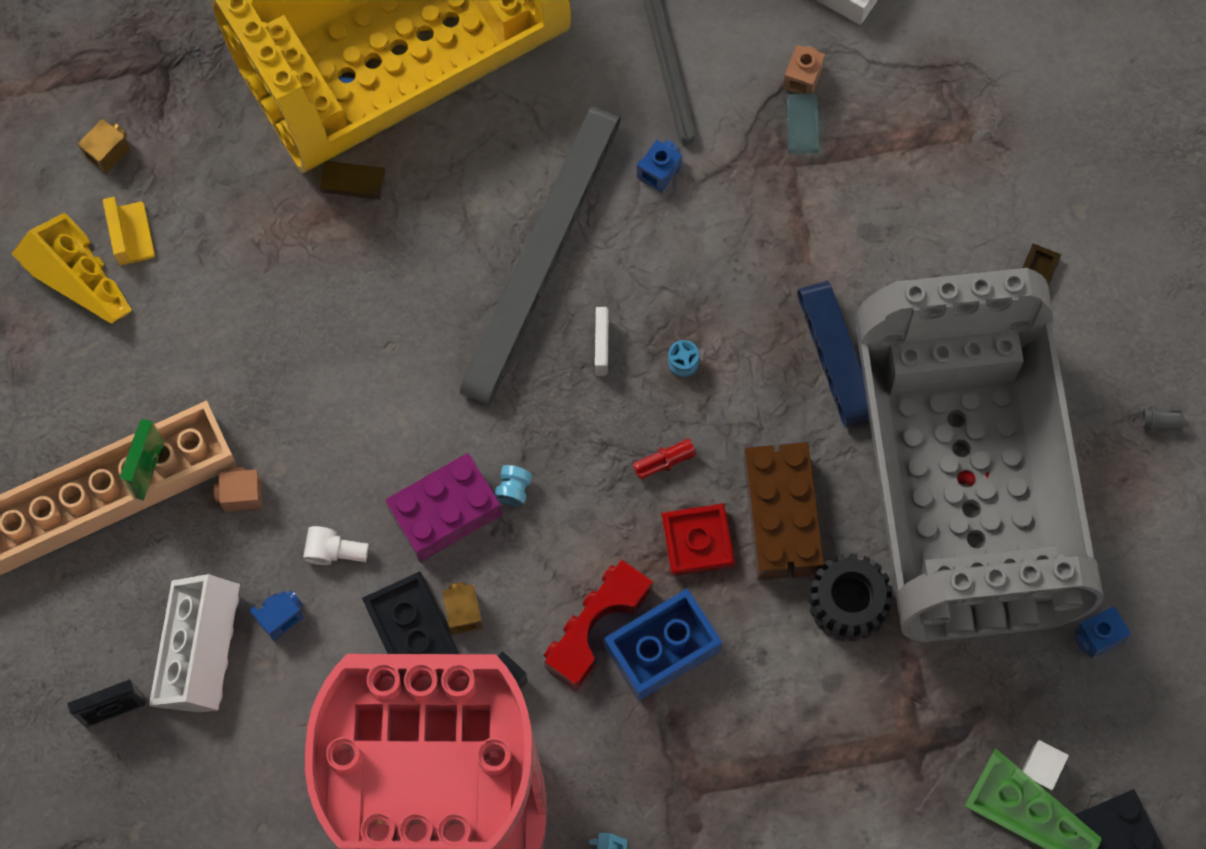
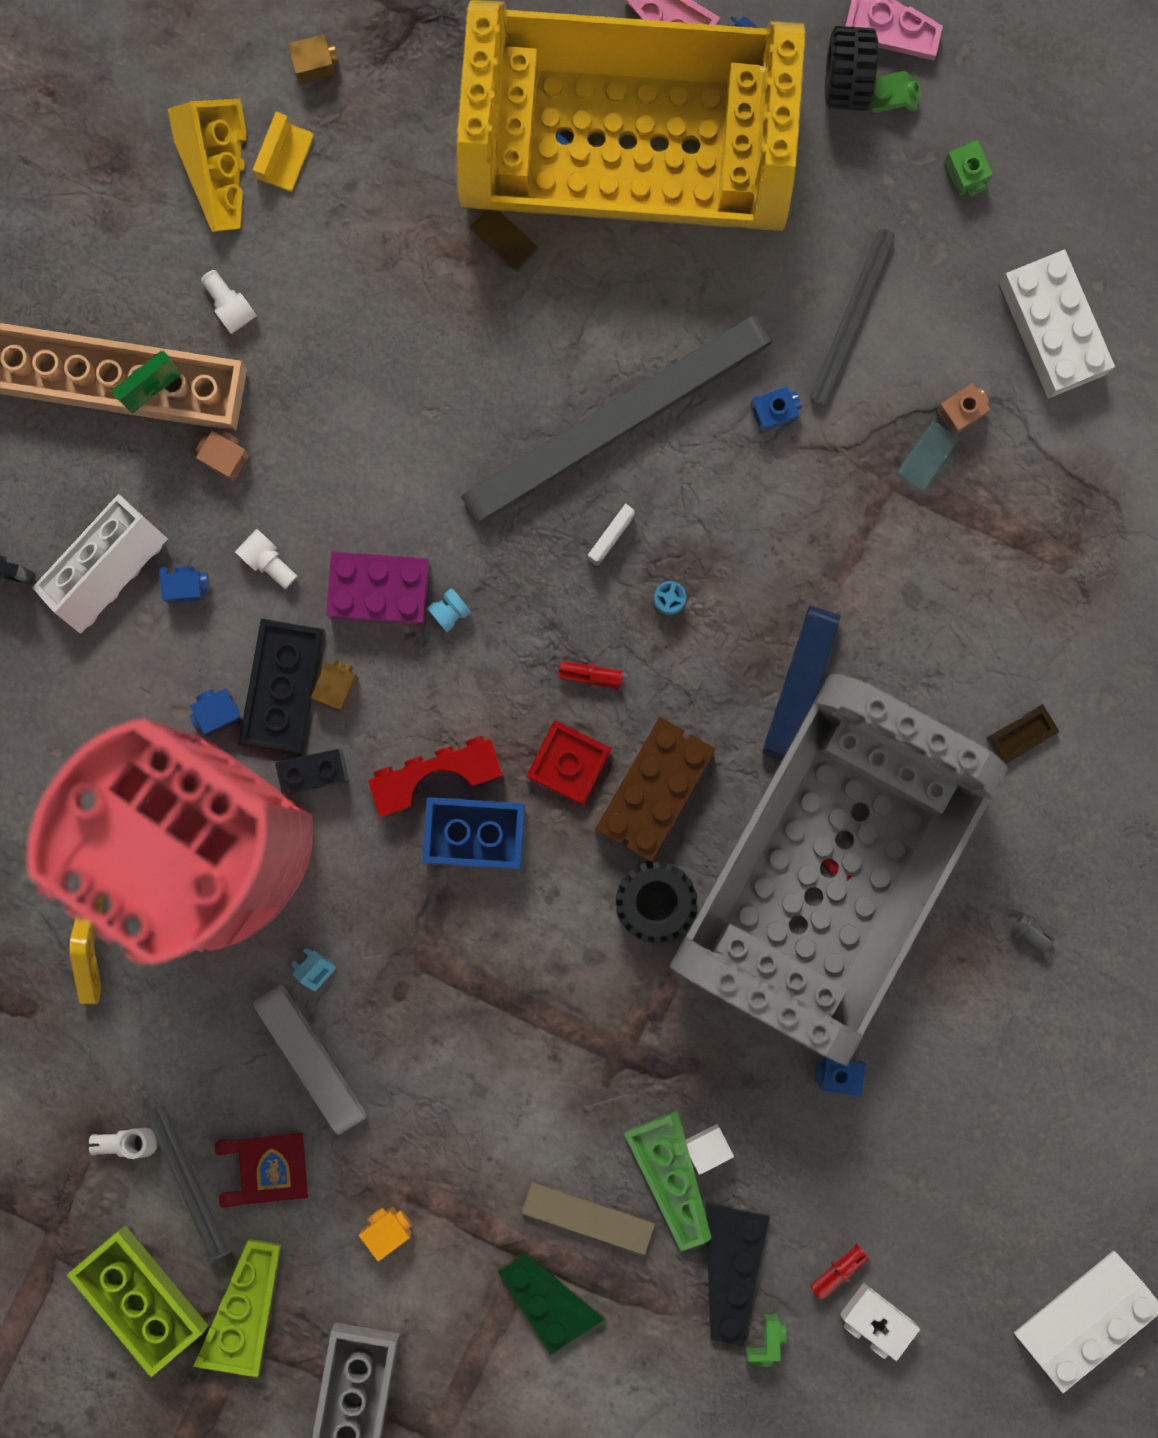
camera: 35 degrees right, 15 degrees up
(168, 373) = (230, 306): none -> white pin

